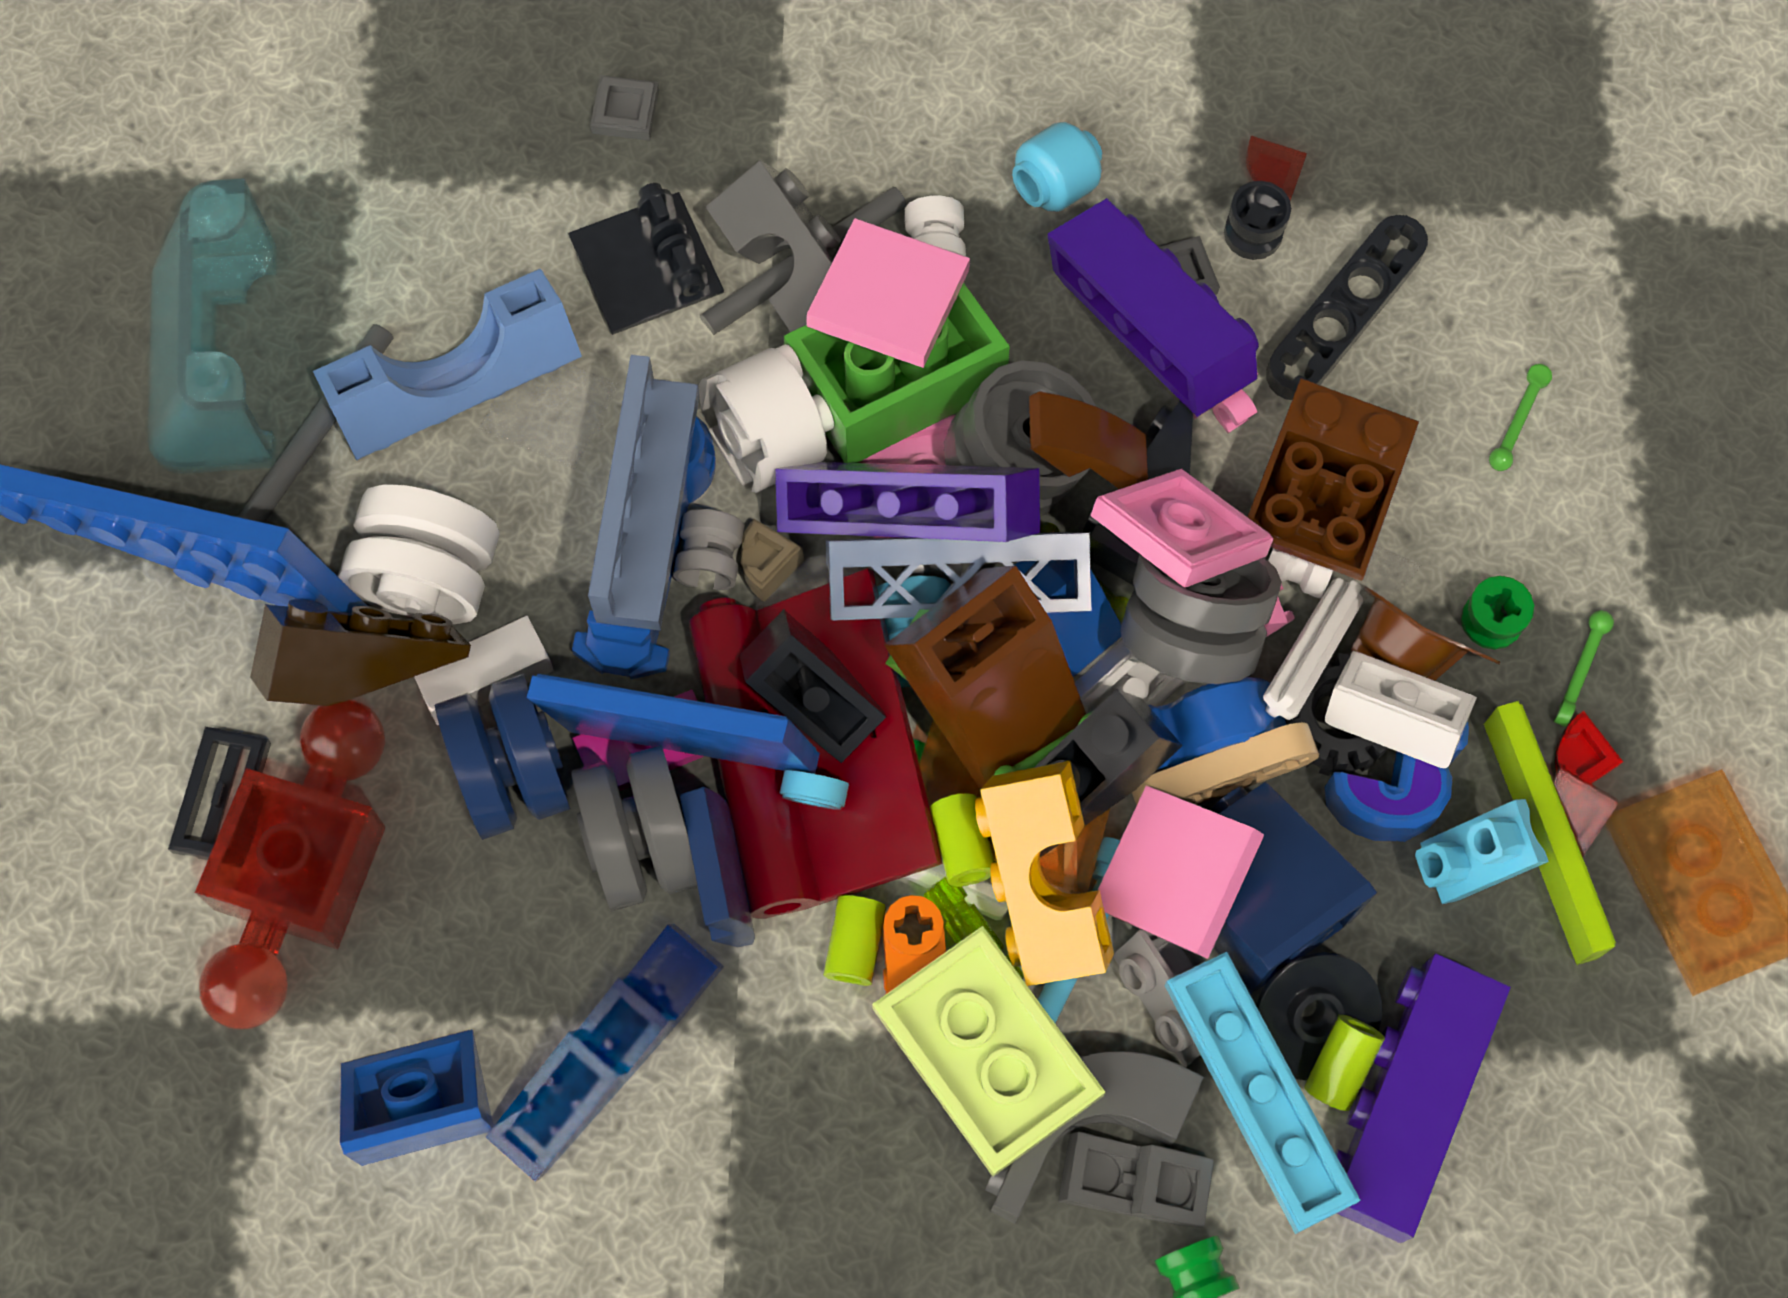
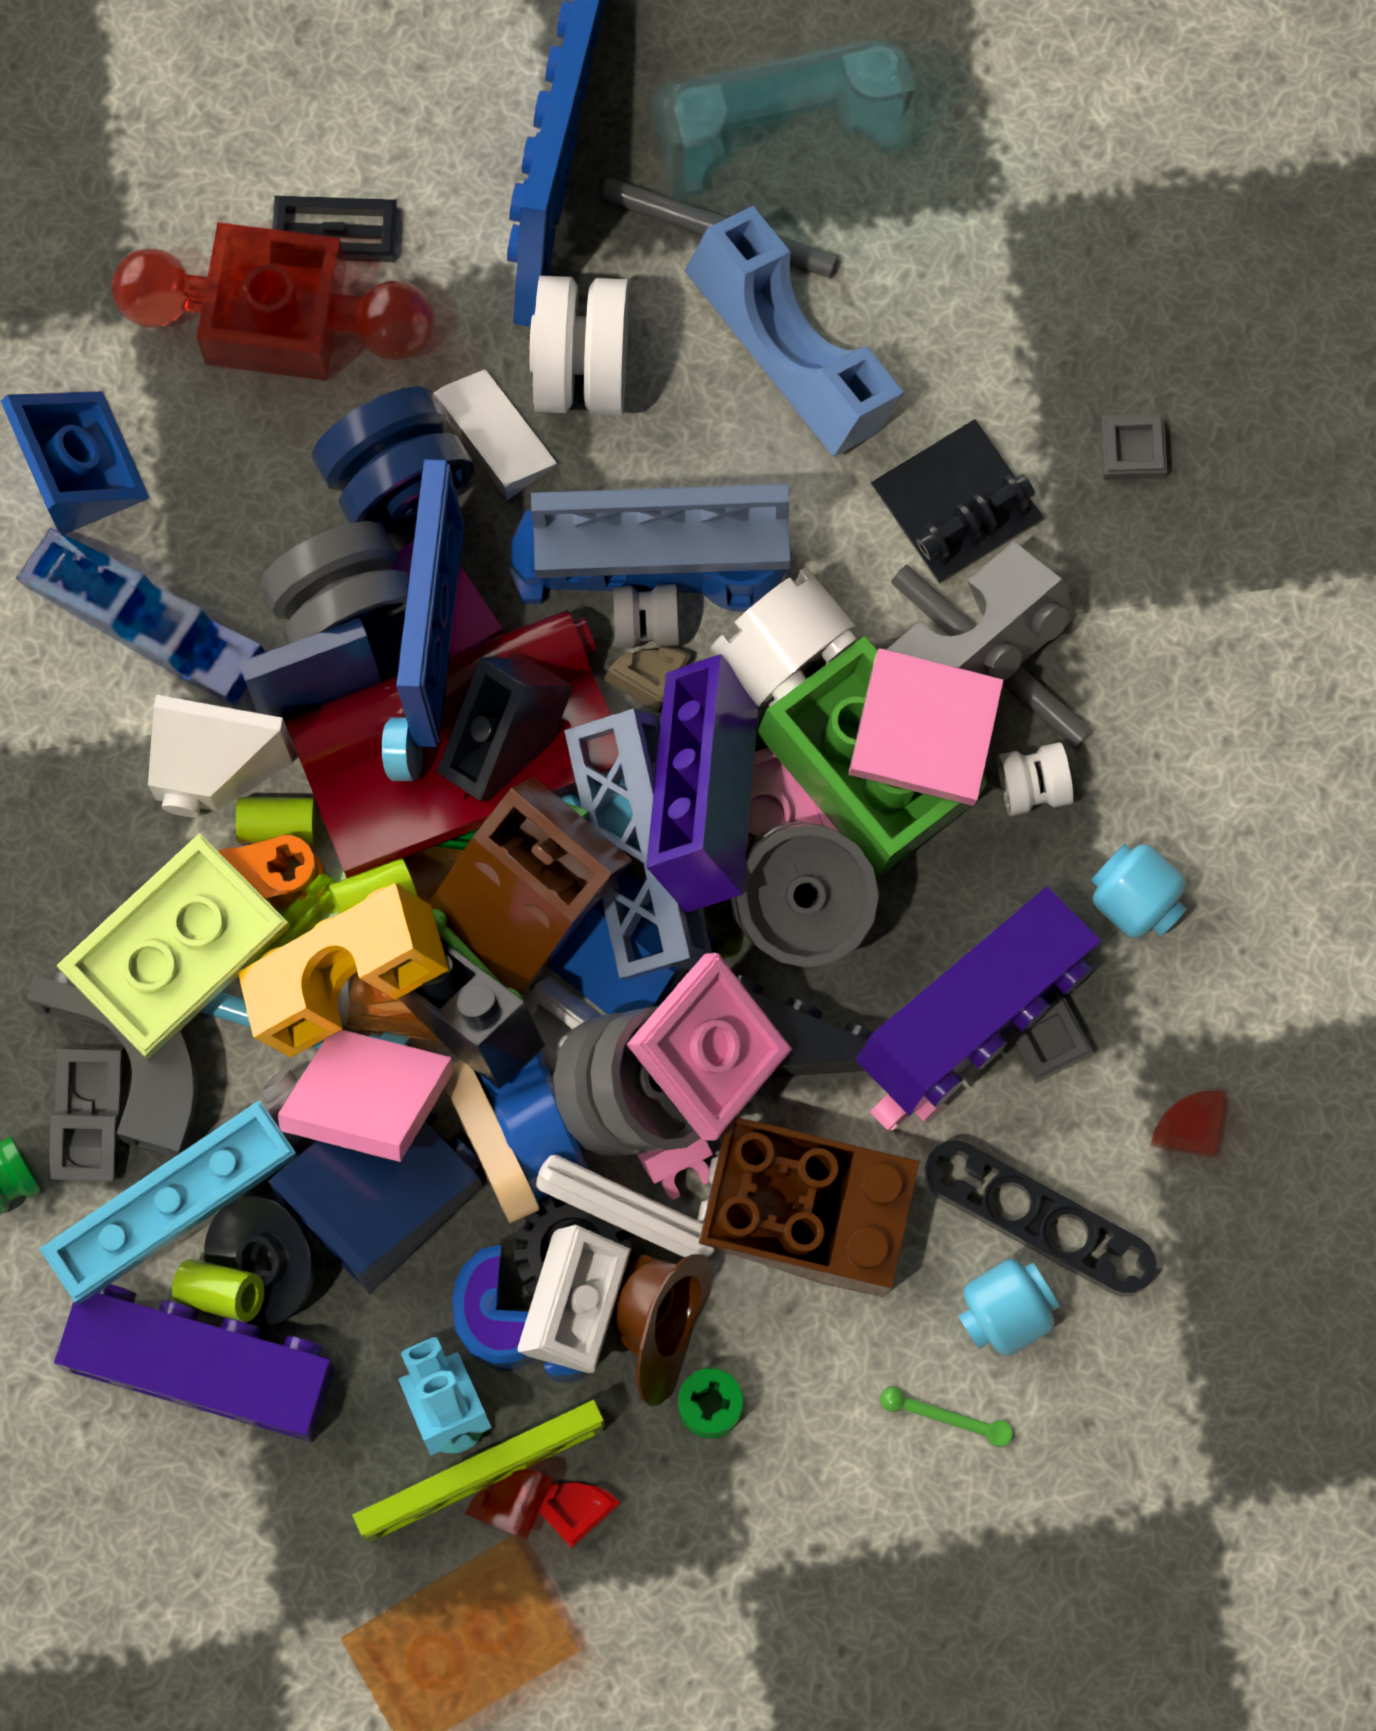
camera: 85 degrees right, 5 degrees up
(337, 656) = (470, 299): dark brown slope -> none
(781, 993) = (211, 754): none -> white slope
(1085, 437) = (795, 947): reddish brown slope -> none
(1257, 220) = (1124, 1099): black wheel -> none
(1433, 338) = (1008, 1307): none -> medium azure head
(1600, 623) = (724, 1518): bright green hinge -> none

